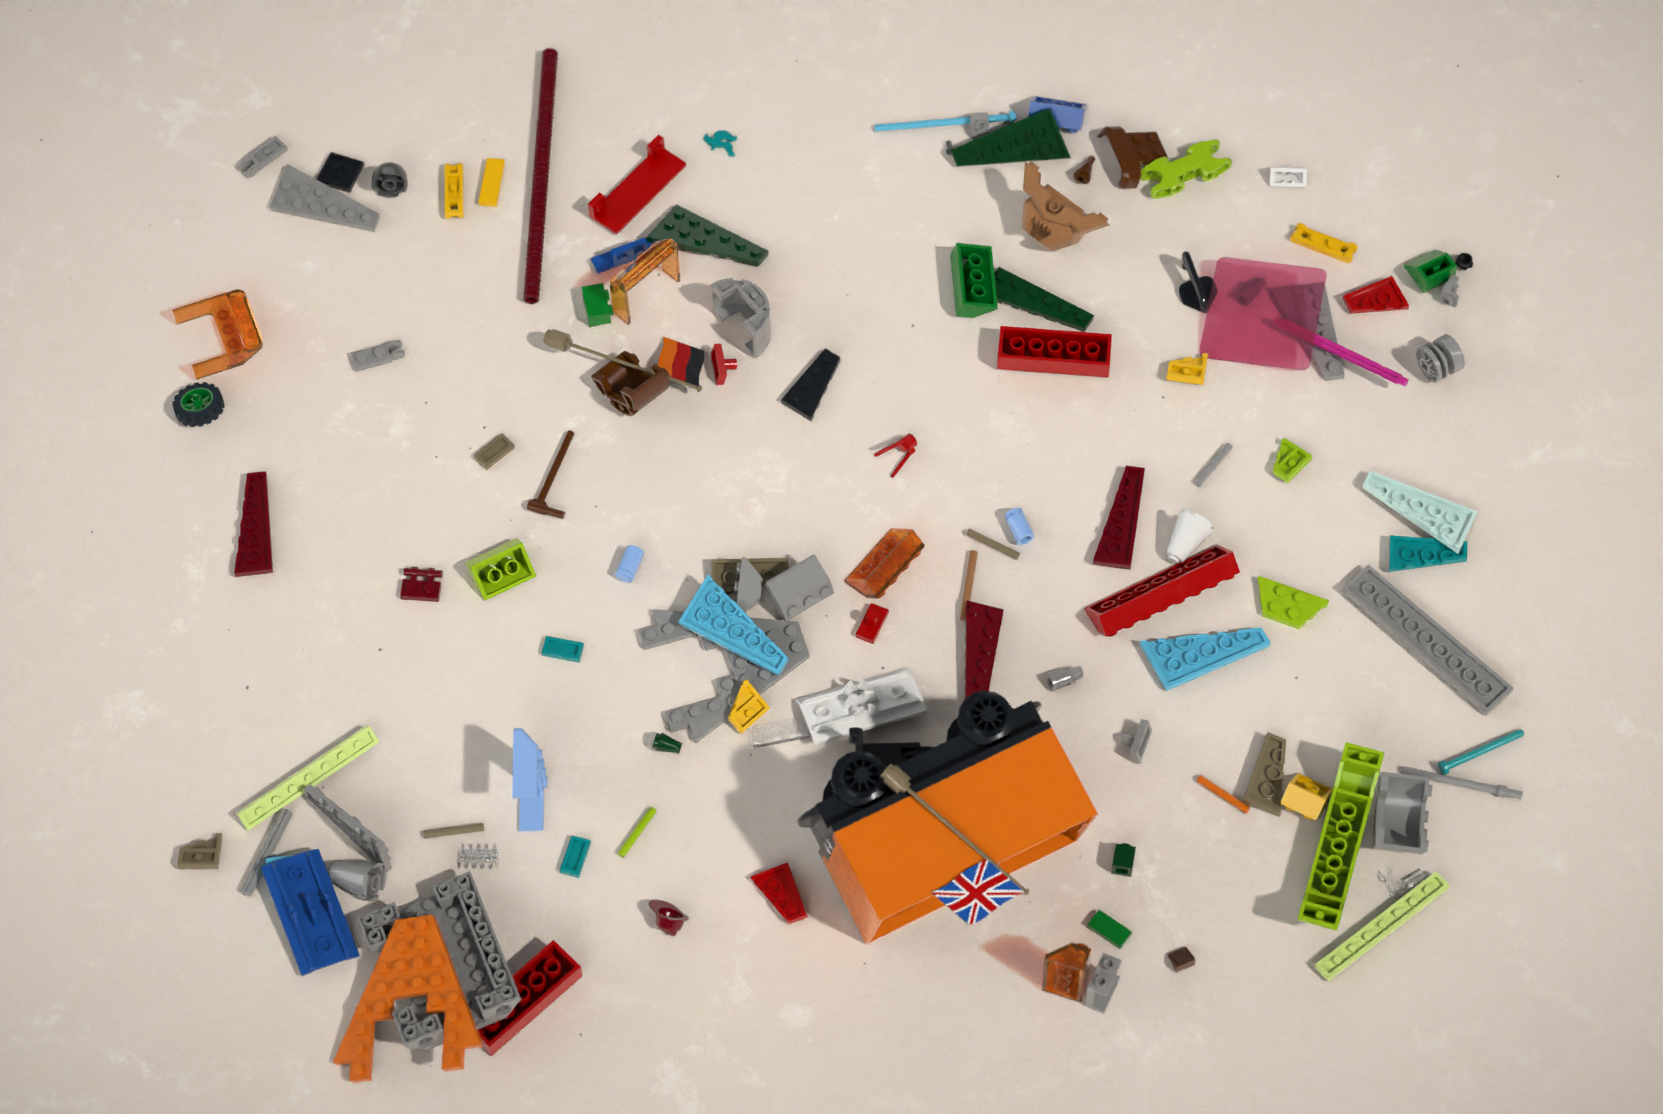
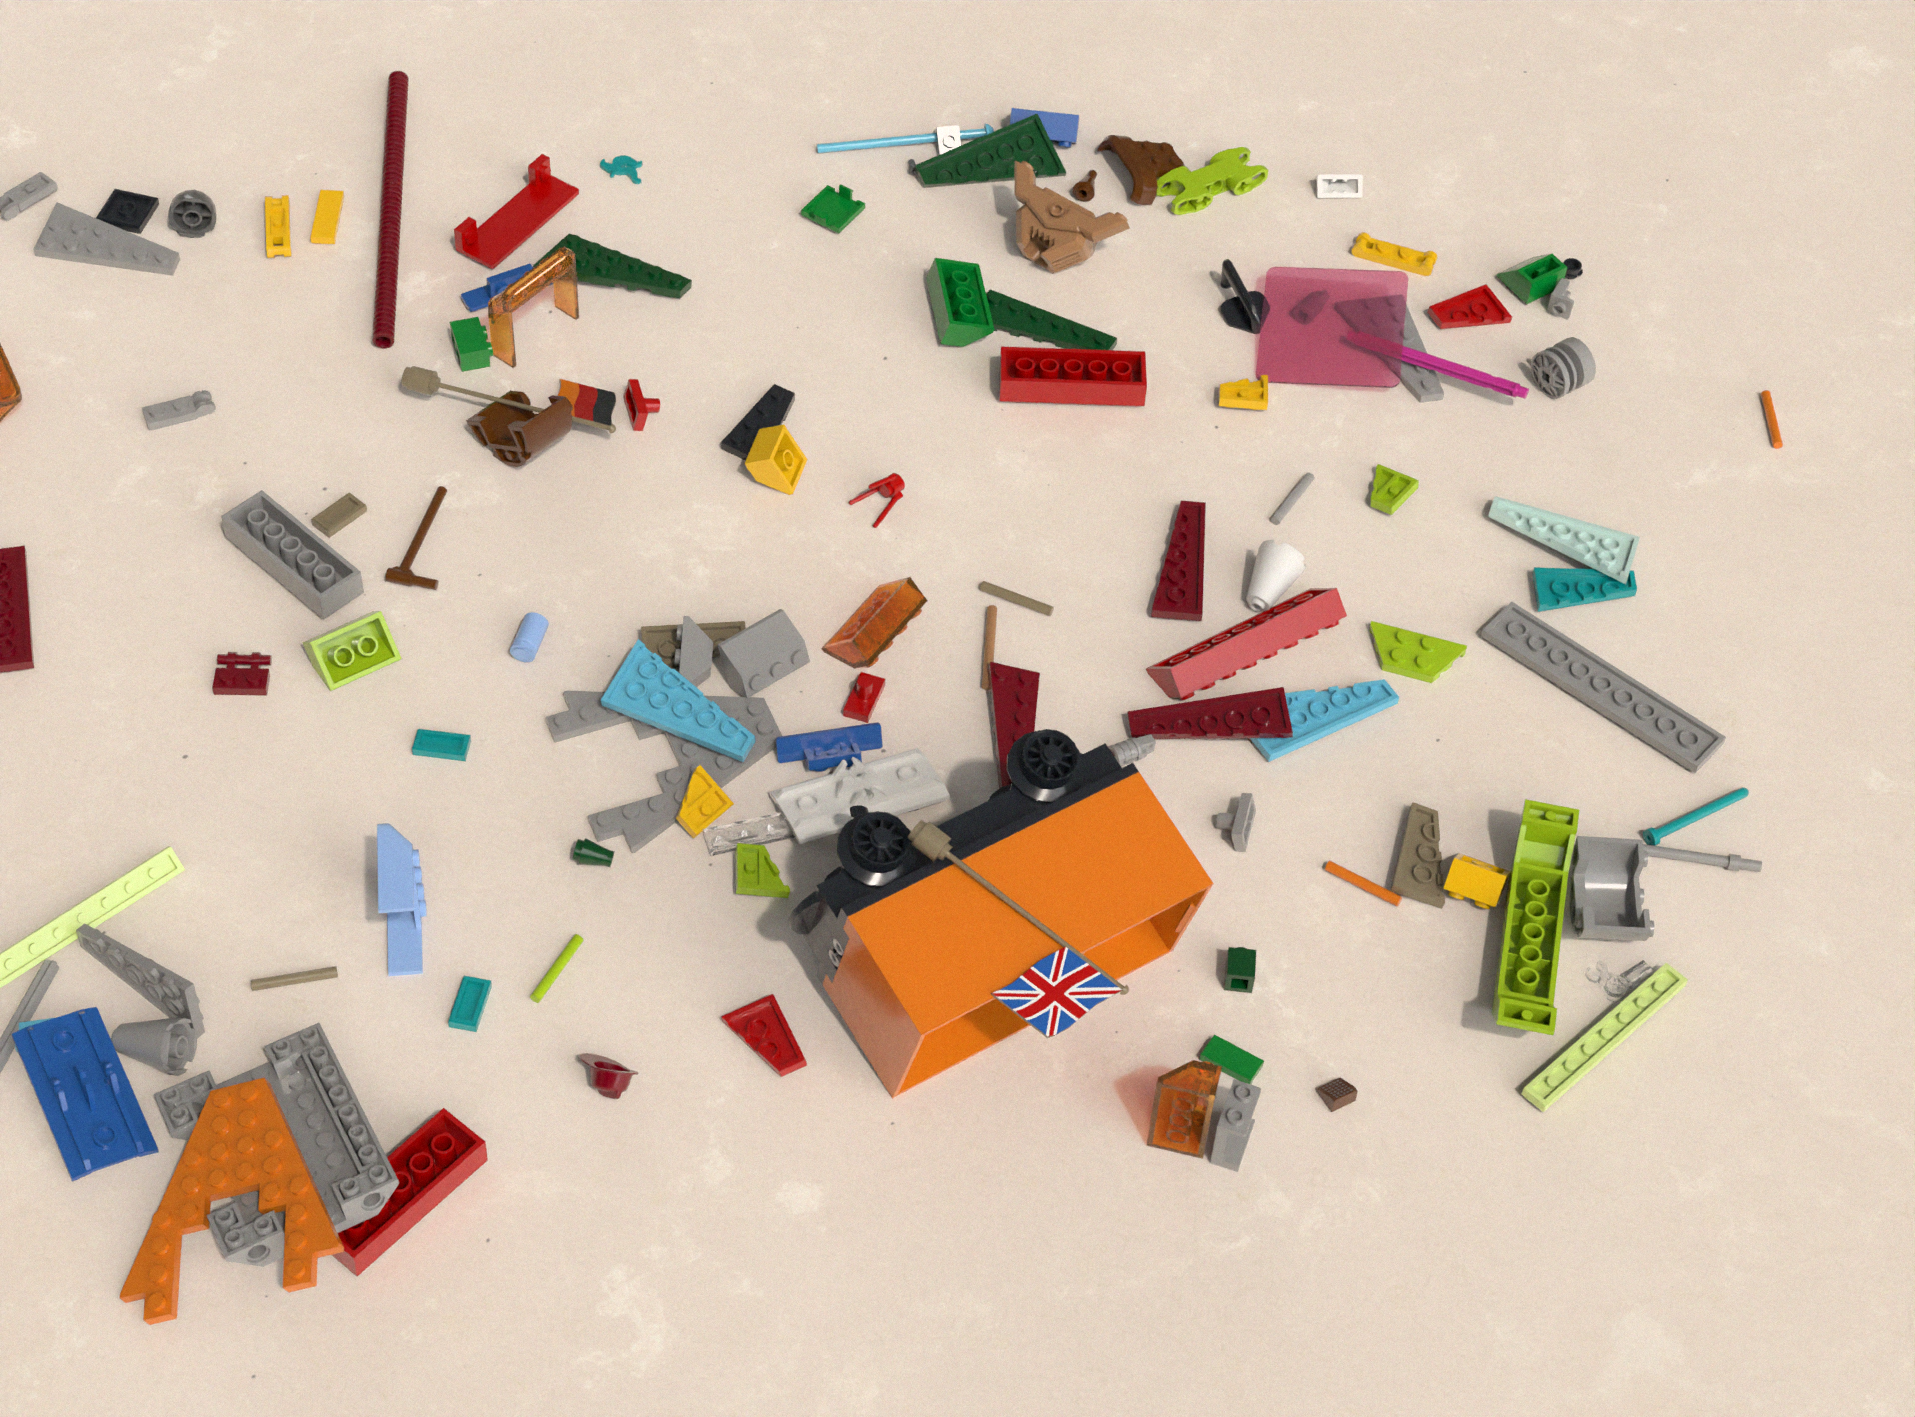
camera: 10 degrees left, 10 degrees down
(459, 487) = (292, 554): none -> light grey brick
(477, 856) = (330, 1008): clear piece -> none
(751, 303) = (671, 330): light grey cylinder -> none
(783, 764) = (757, 873): none -> lime wing
(821, 418) = (776, 459): none -> yellow slope
(843, 666) = (830, 746): none -> blue bracket
(883, 186) = (833, 208): none -> green piece
(1019, 526) = (1049, 574): light blue piece -> none
(1139, 655) = (1232, 716): none -> dark red wing
(1602, 407) = (1771, 419): none -> orange bar

